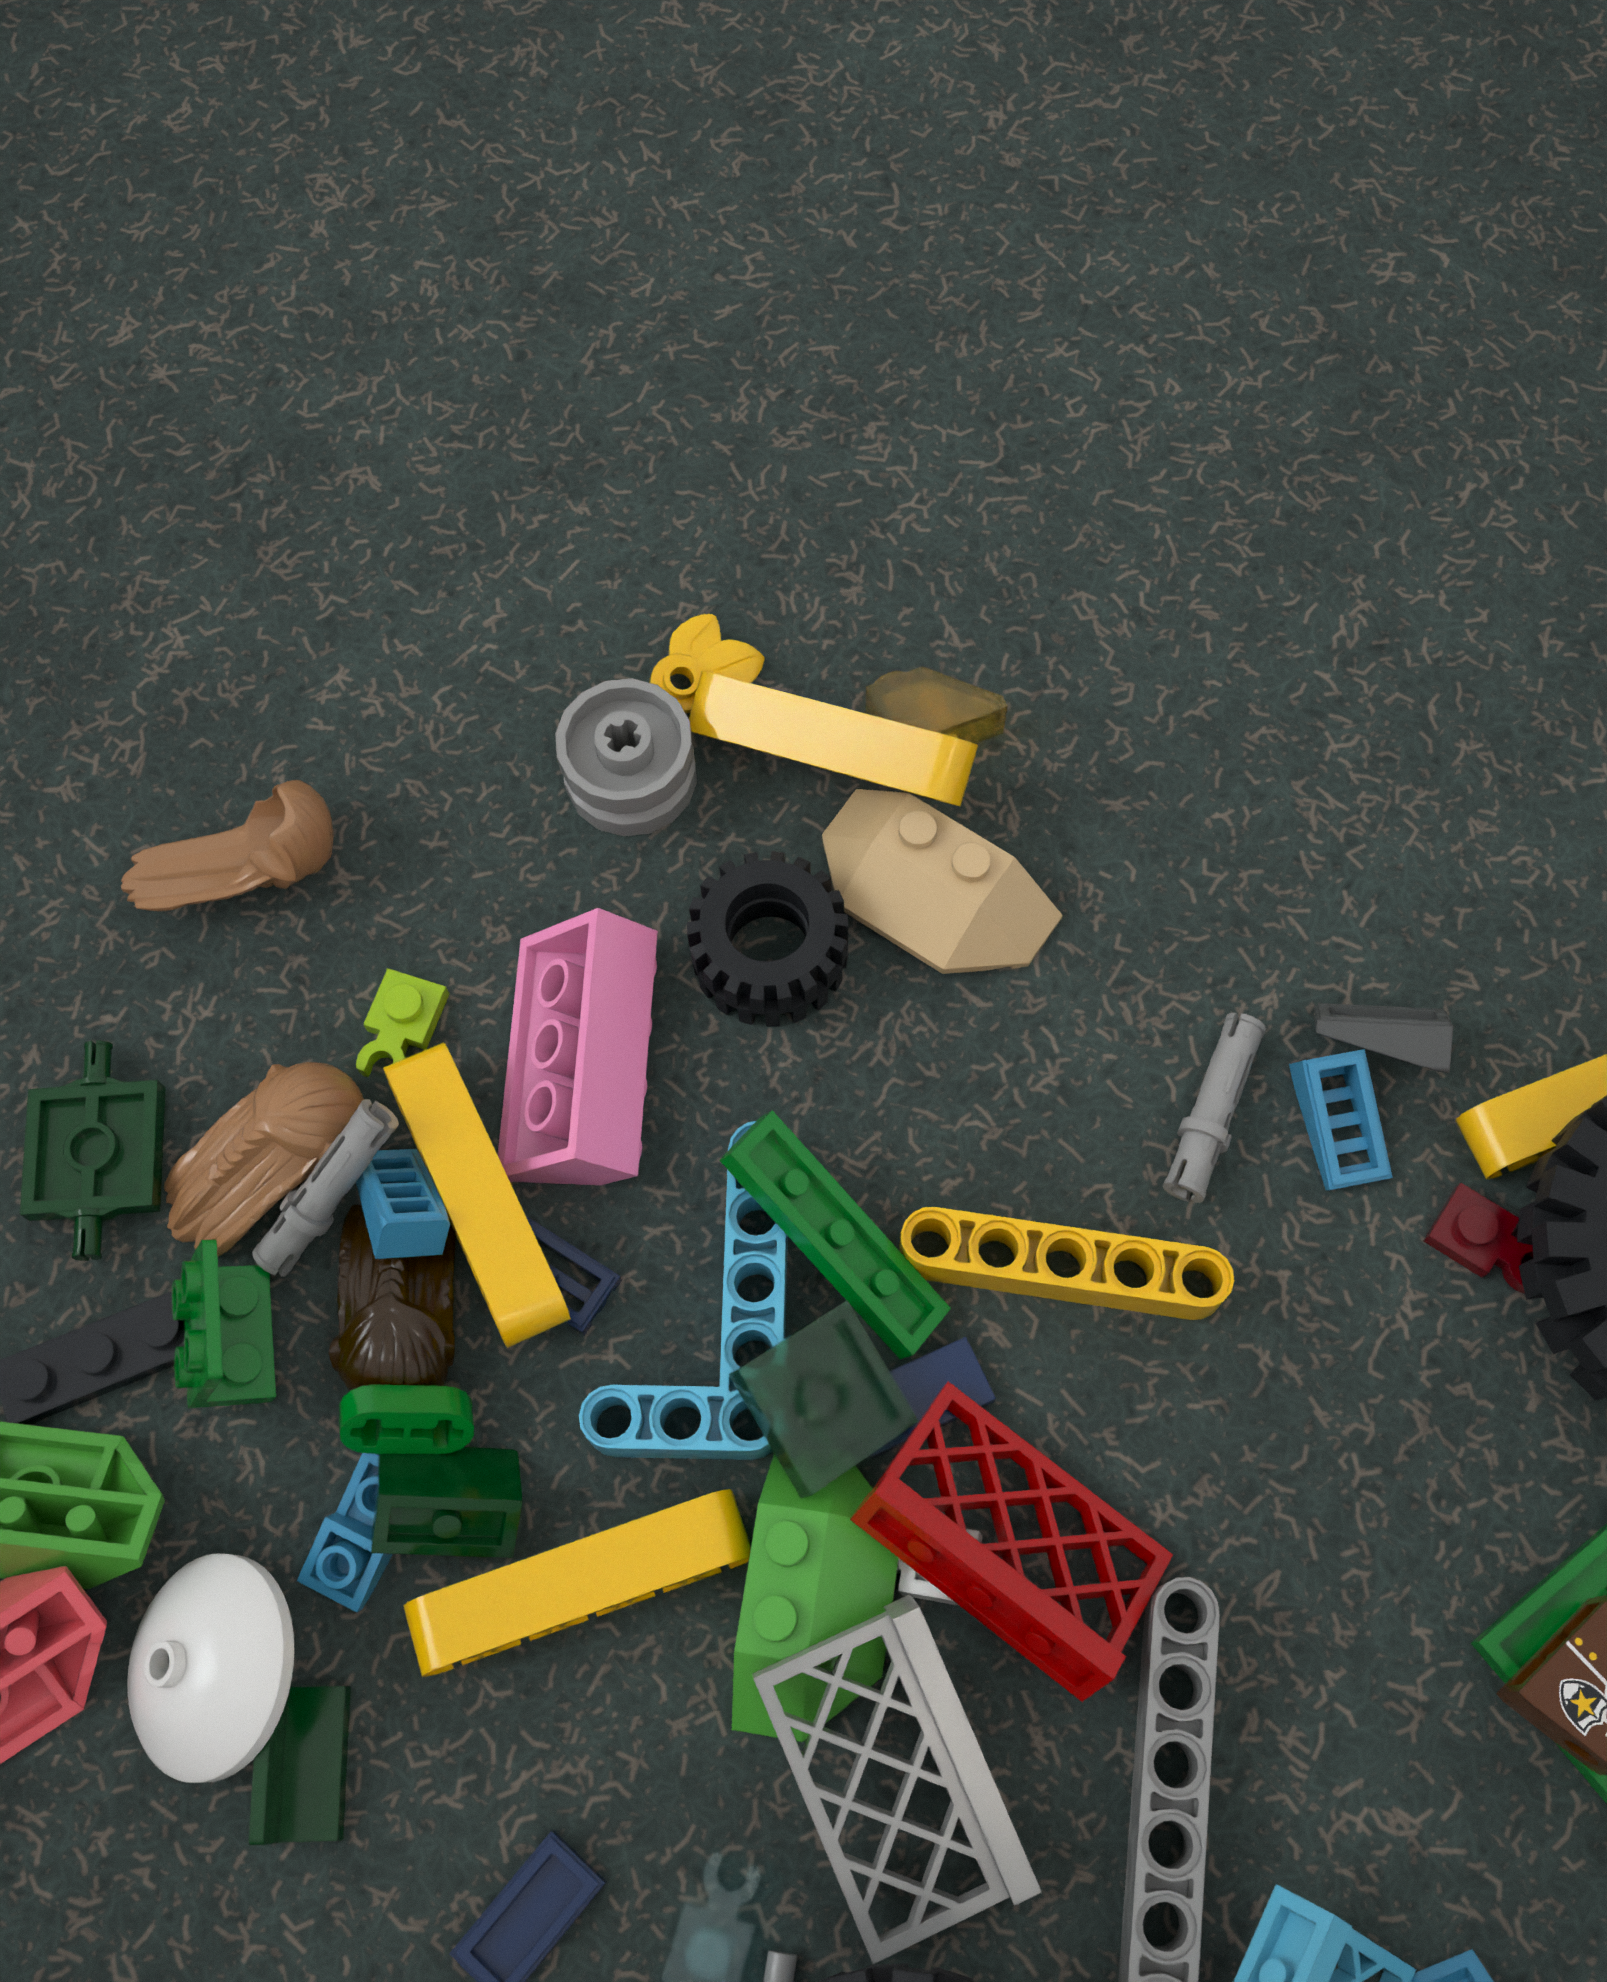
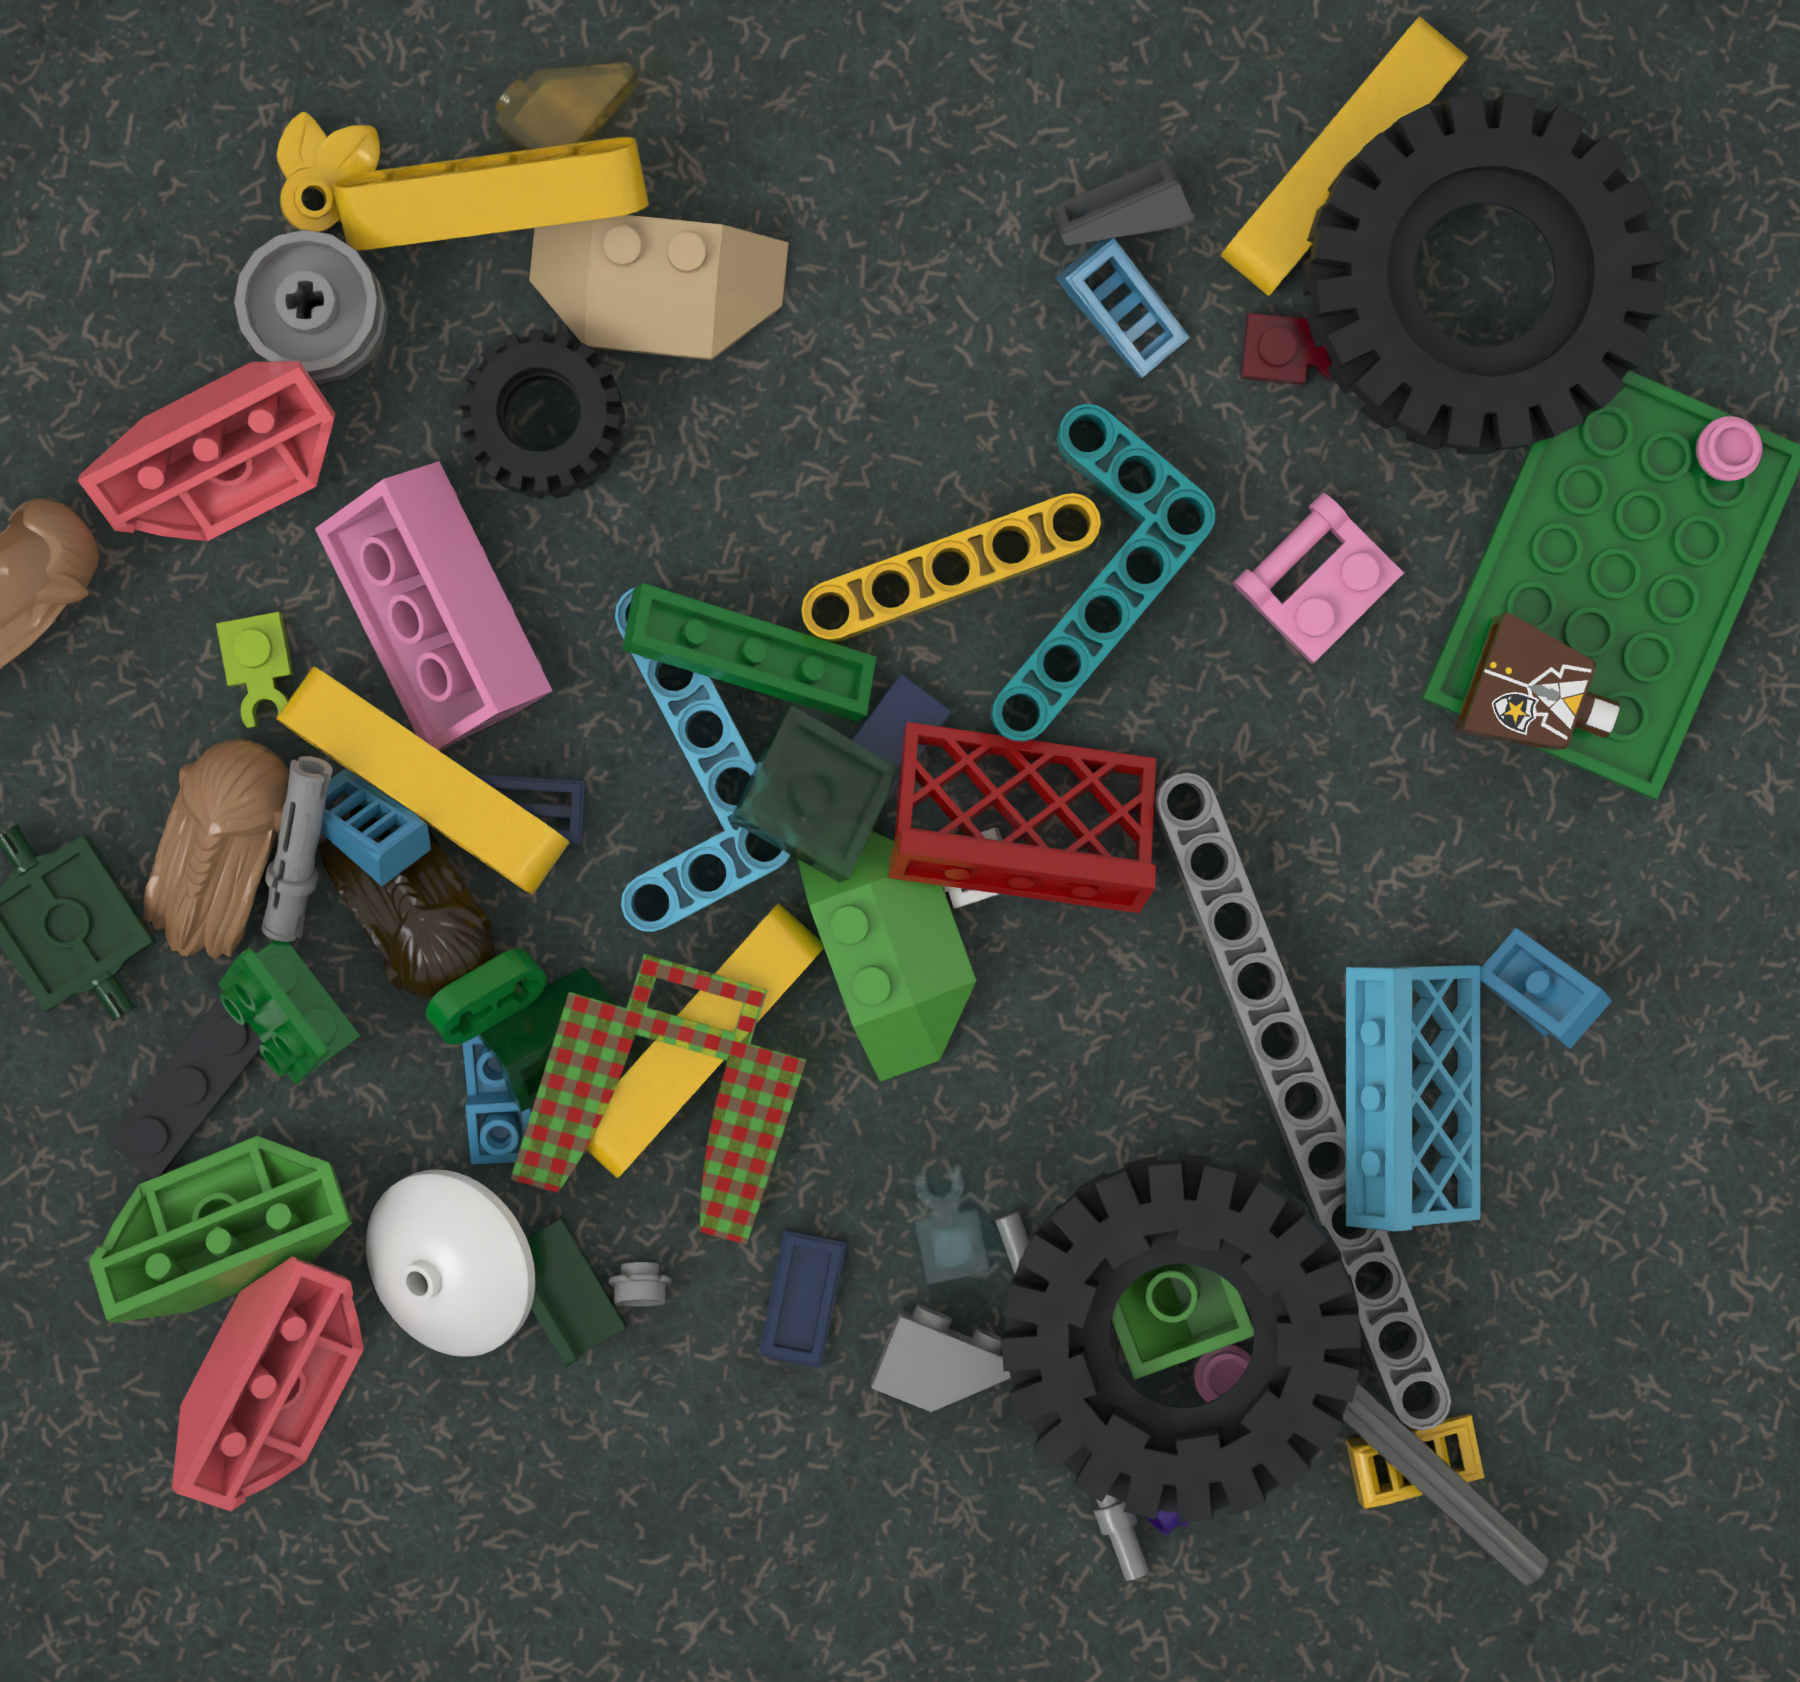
camera: 30 degrees left, 20 degrees up
(378, 1803) = (639, 1285): none -> light grey plate
(473, 831) = (216, 455): none -> coral wedge
(588, 1677) = (590, 1058): none -> piece
(959, 1765) = (1060, 1005): light grey fence -> none
(1207, 1128) = (1010, 358): light grey pin -> none
(1213, 1358) = (1113, 583): none -> teal beam
(1425, 1489) = (1333, 594): none -> bright pink plate

